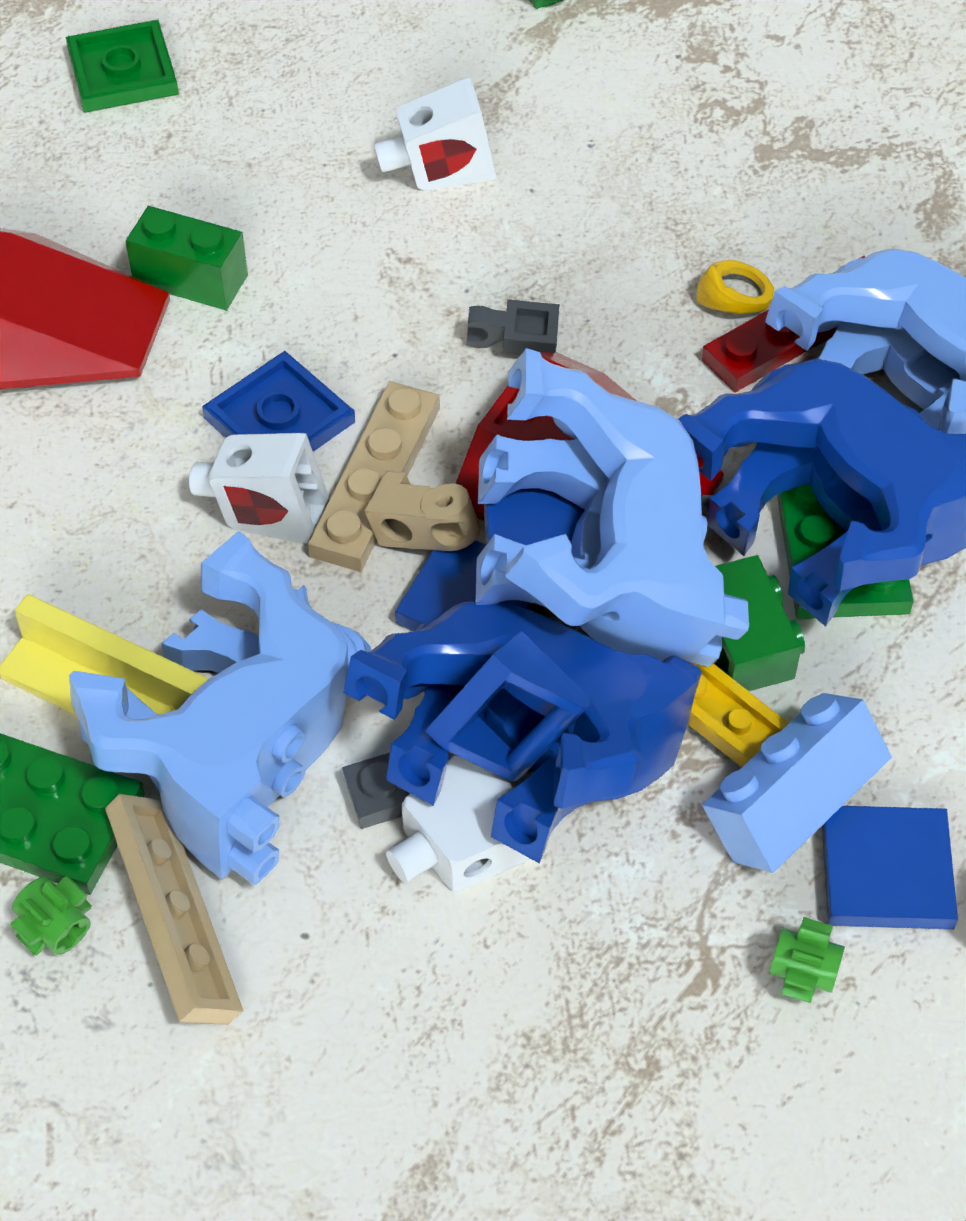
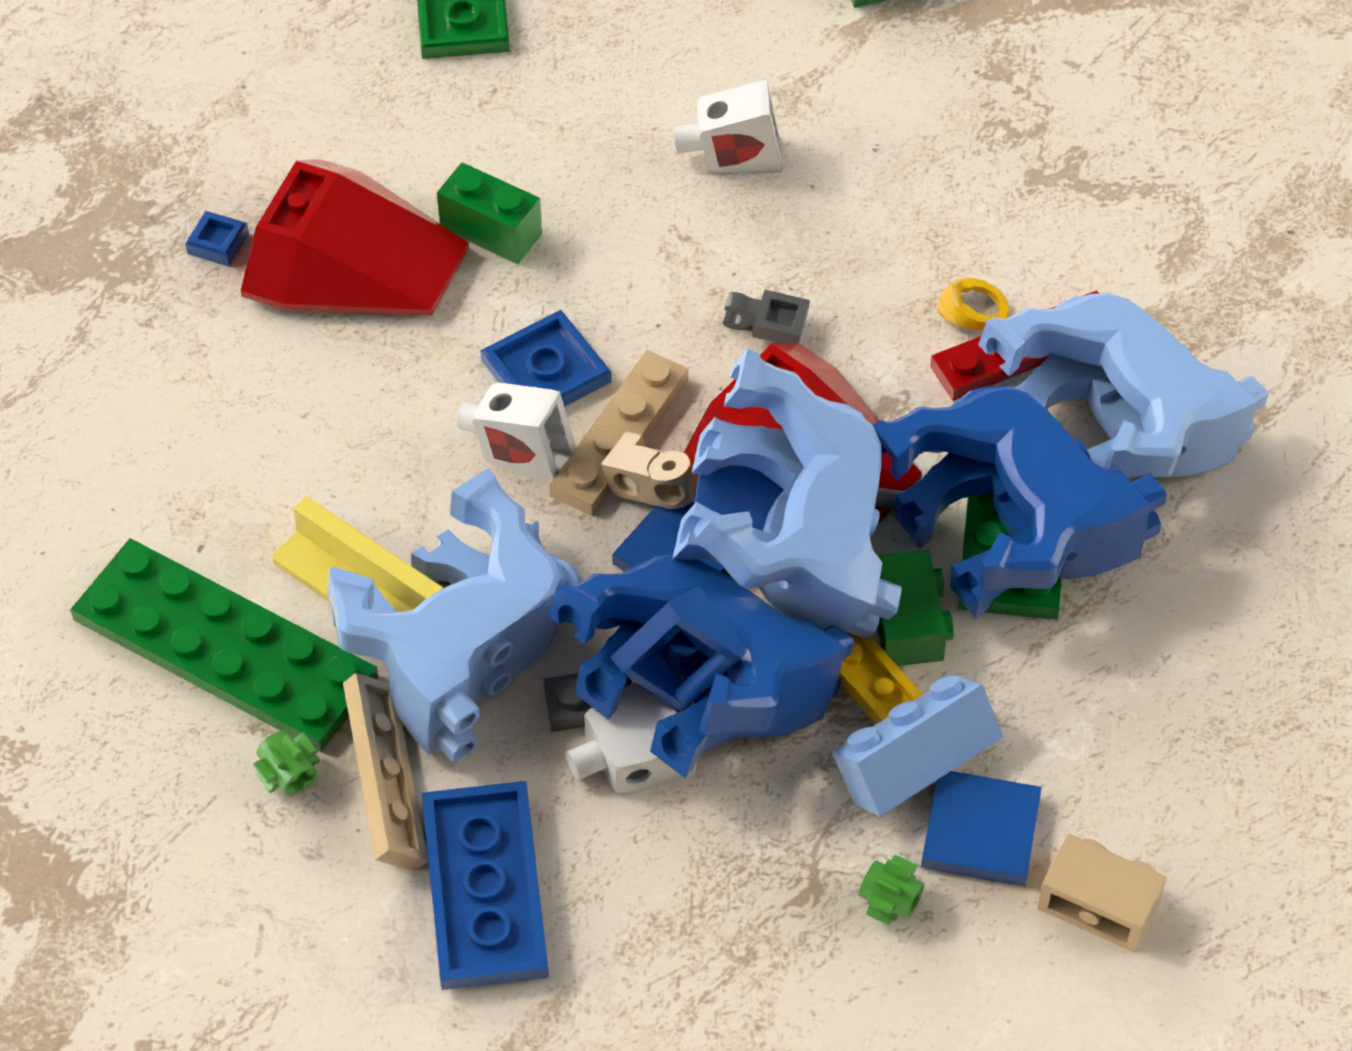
camera: 10 degrees right, 0 degrees up
(318, 1033) = (484, 885): none -> blue plate

